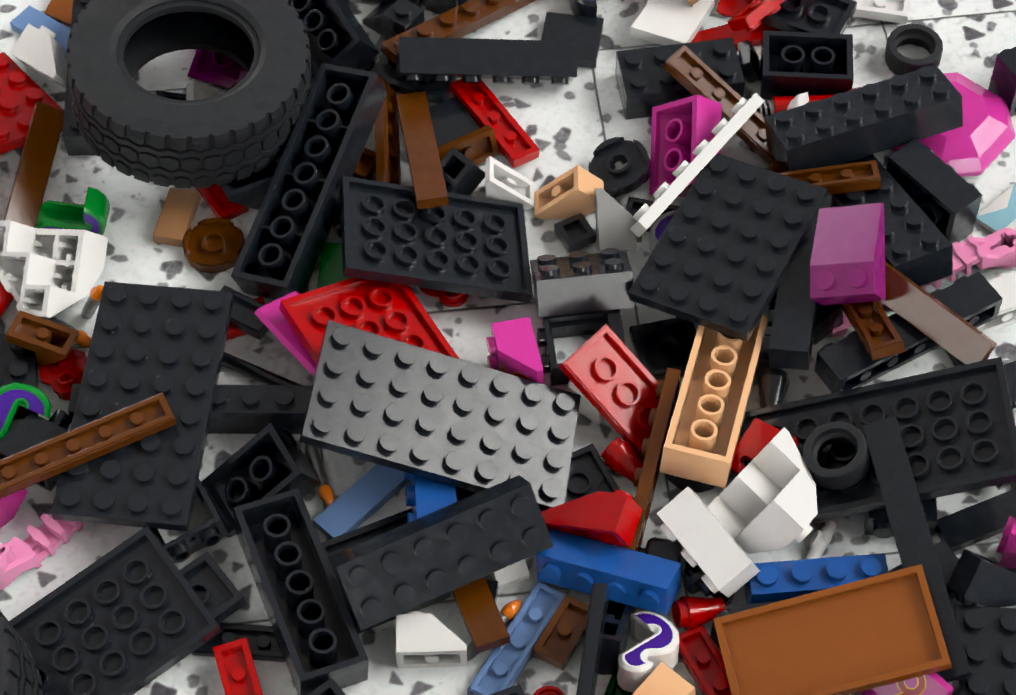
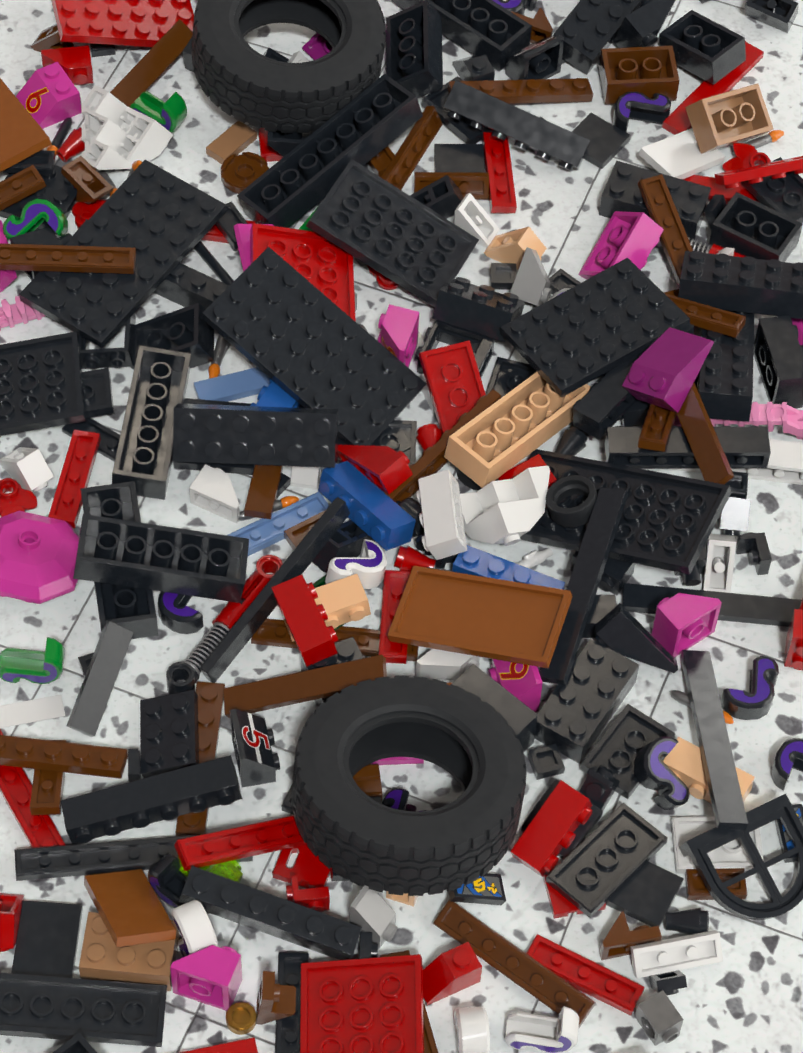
camera: 25 degrees right, 0 degrees up
(422, 150) = (425, 168): reddish brown tile -> none
(631, 176) = (571, 254): black plate -> none
(687, 172) = (645, 247): white plate -> none

